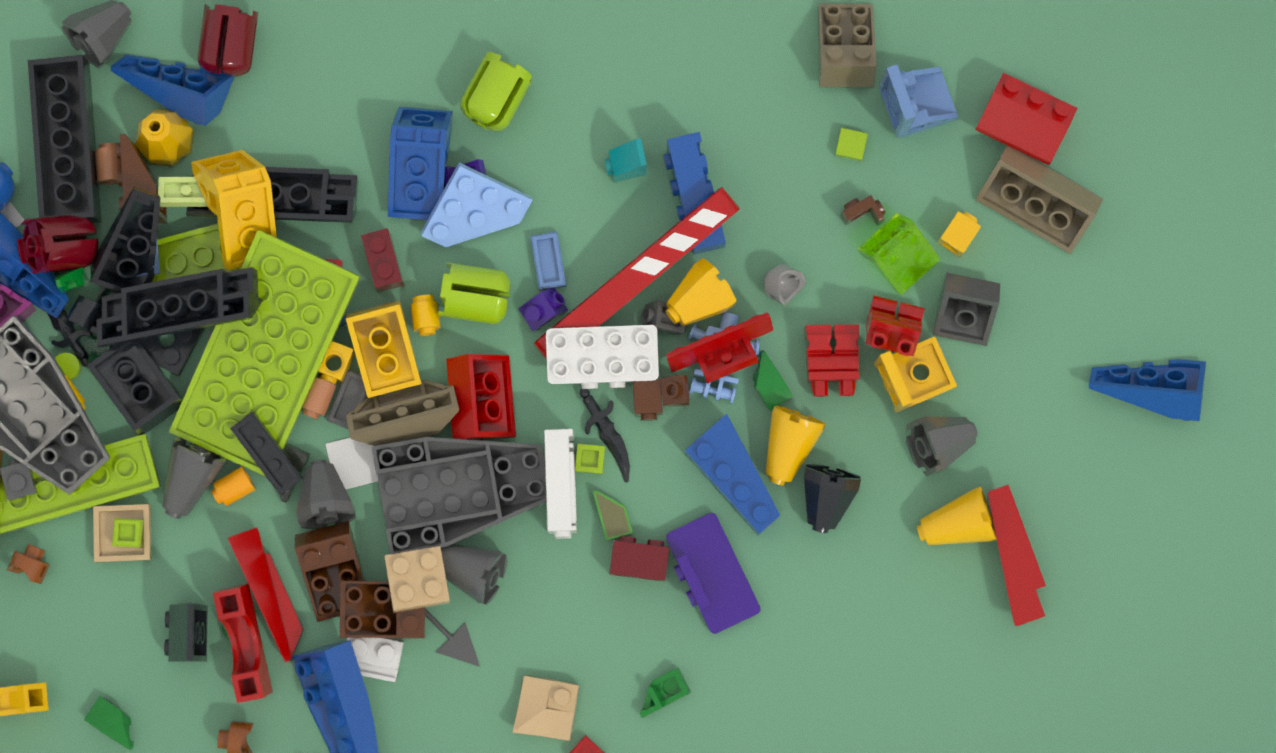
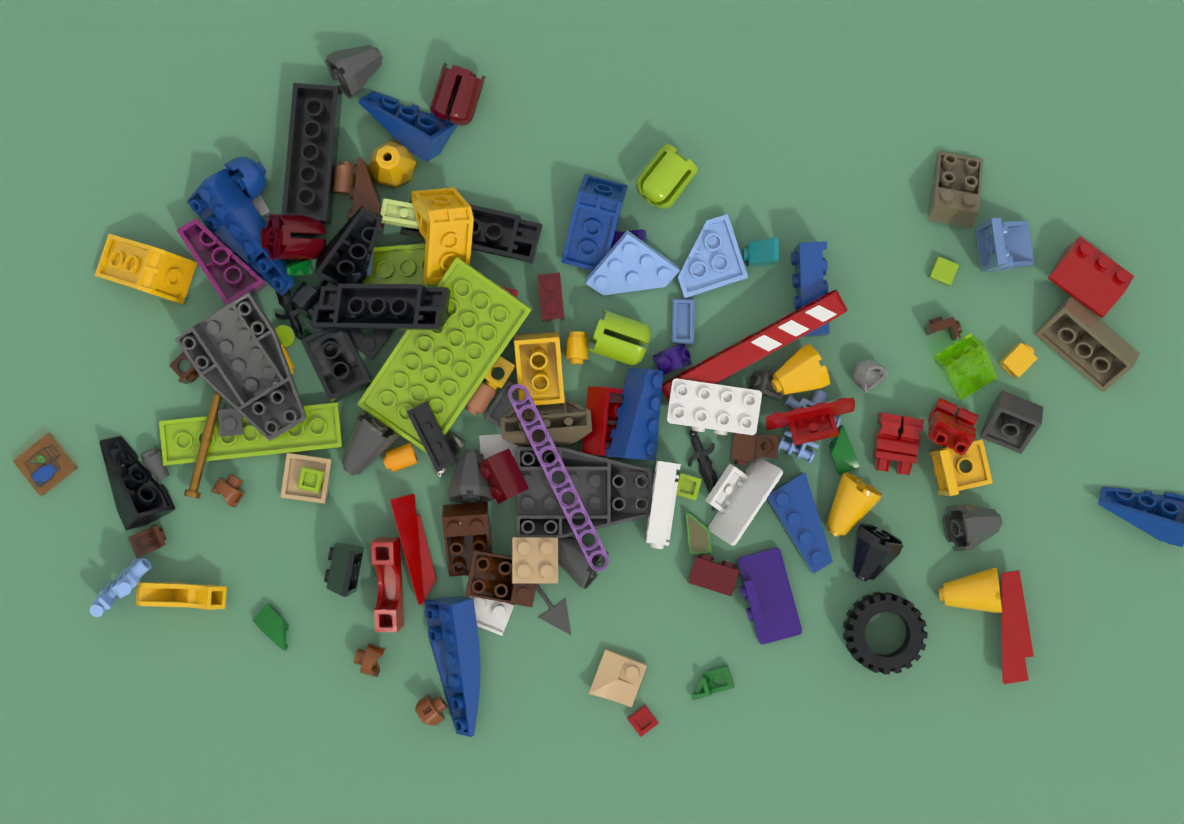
camera: 10 degrees right, 5 degrees up
(360, 484) = (503, 476): none -> dark red brick
(420, 459) = (557, 465): none -> medium lavender beam
(513, 384) = (638, 416): none -> blue wedge
(570, 181) = (713, 259): none -> light blue plate
(653, 458) = (740, 497): none -> white bracket
(824, 598) = (857, 623): none -> black tyre

